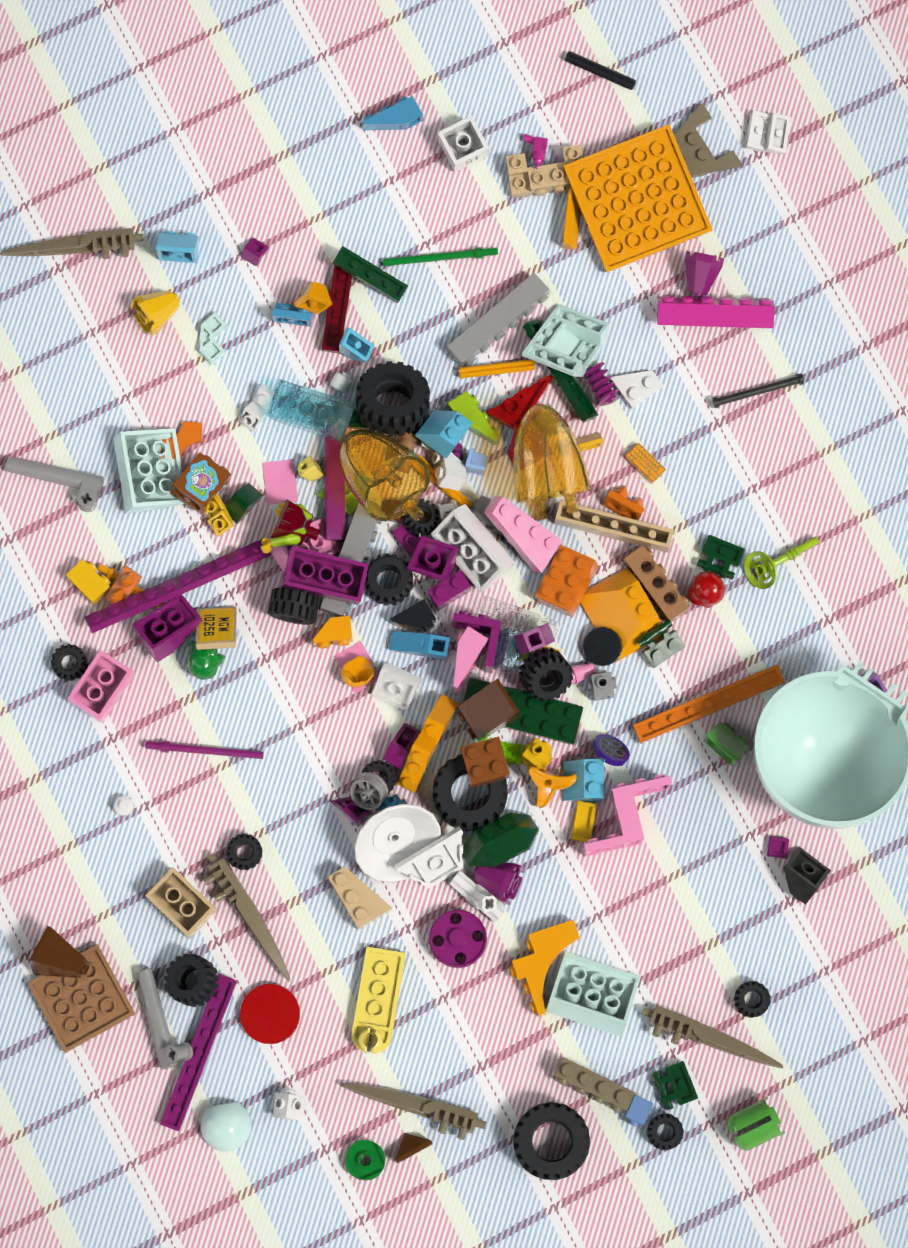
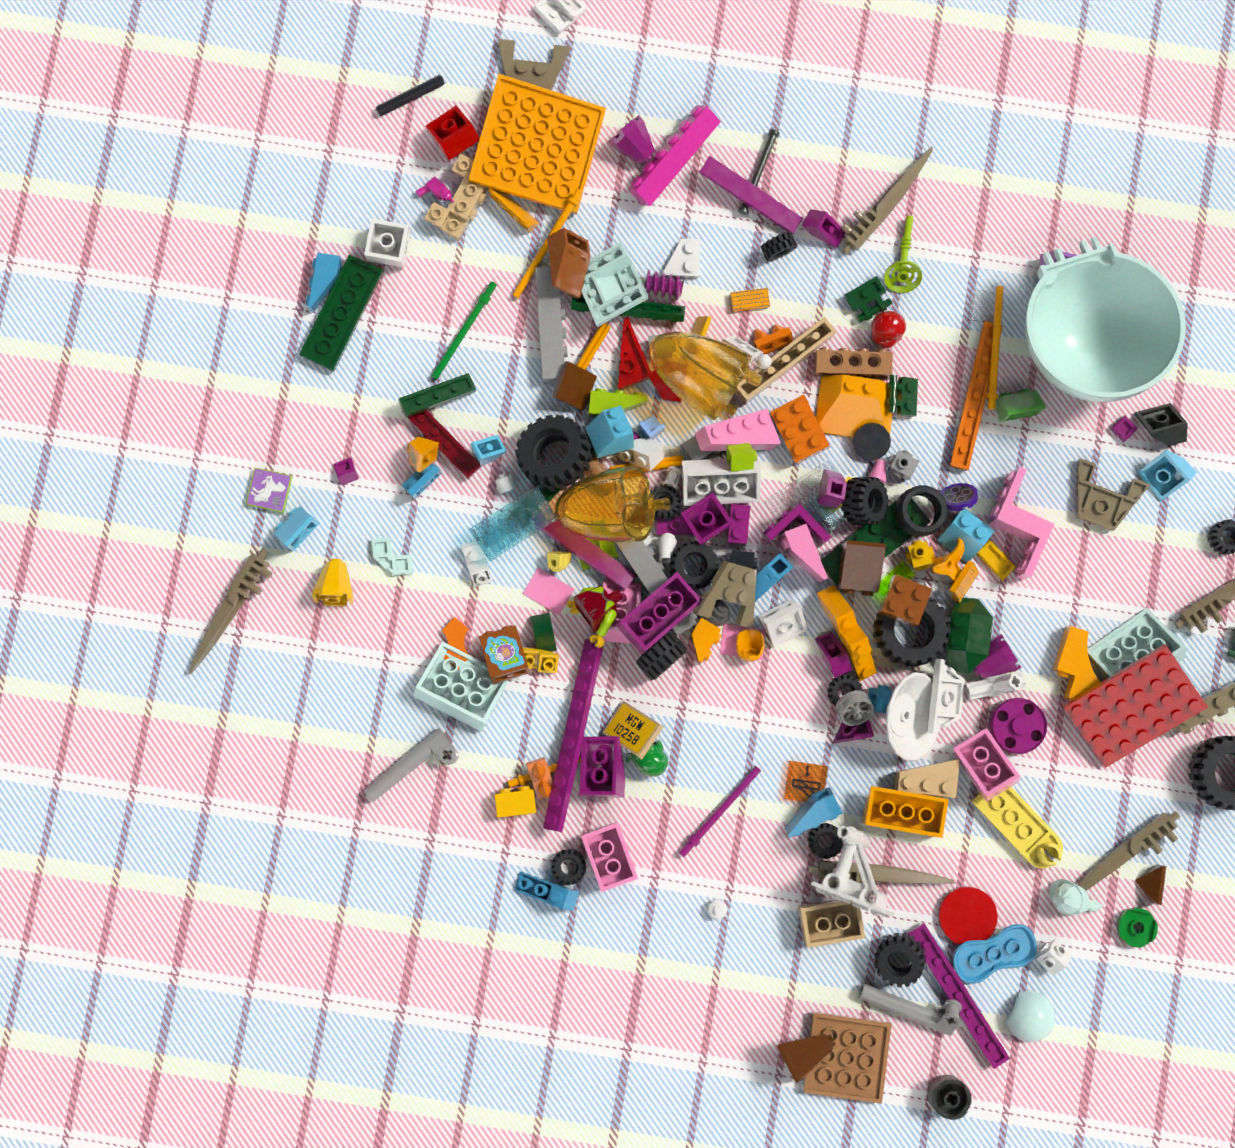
camera: 60 degrees left, 5 degrees up
(36, 659) = (547, 891): none -> dark azure slope
(99, 1106) = (960, 1099): none -> pearl dark grey brick
(193, 204) = (269, 490): none -> tile
(213, 881) = (847, 889): none -> white plate
(242, 1048) = (1009, 949): none -> dark azure plate
(262, 824) = (816, 810): none -> dark azure slope
(280, 801) = (804, 780): none -> clear orange tile
(316, 896) = (905, 811): none -> light orange slope
(347, 1088) = (1071, 898): none -> light aqua piece
(364, 626) = (720, 614): none -> dark grey plate
(379, 151) = (341, 313): none -> dark green plate
(390, 545) = (666, 546): none -> white cone
(394, 618) = (735, 585): none -> dark tan wing
(403, 933) = (986, 765): none -> bright pink brick
(461, 375) = (574, 386): none -> reddish brown tile
(501, 545) = (741, 457): none -> lime brick
(543, 806) = (964, 581): none -> light orange tile
(544, 1017) = (1135, 706): none -> plate
(558, 294) = (568, 261): none -> dark orange slope
(563, 267) = (573, 201): none -> light orange bar
(585, 709) = (938, 502): none -> black tyre
(593, 125) = (452, 132): none -> red brick
(598, 492) = (763, 360): none -> white plate
(697, 875) = (1100, 504): none -> dark tan wing
(705, 451) = (778, 246): none -> black tyre
(717, 715) = (992, 396): none -> light orange bar
(731, 398) = (750, 195): none -> magenta tile
(751, 477) = (823, 227): none -> magenta slope
(765, 908) = (1166, 474): none -> medium azure slope
(790, 511) = (879, 212): none -> dark tan piece

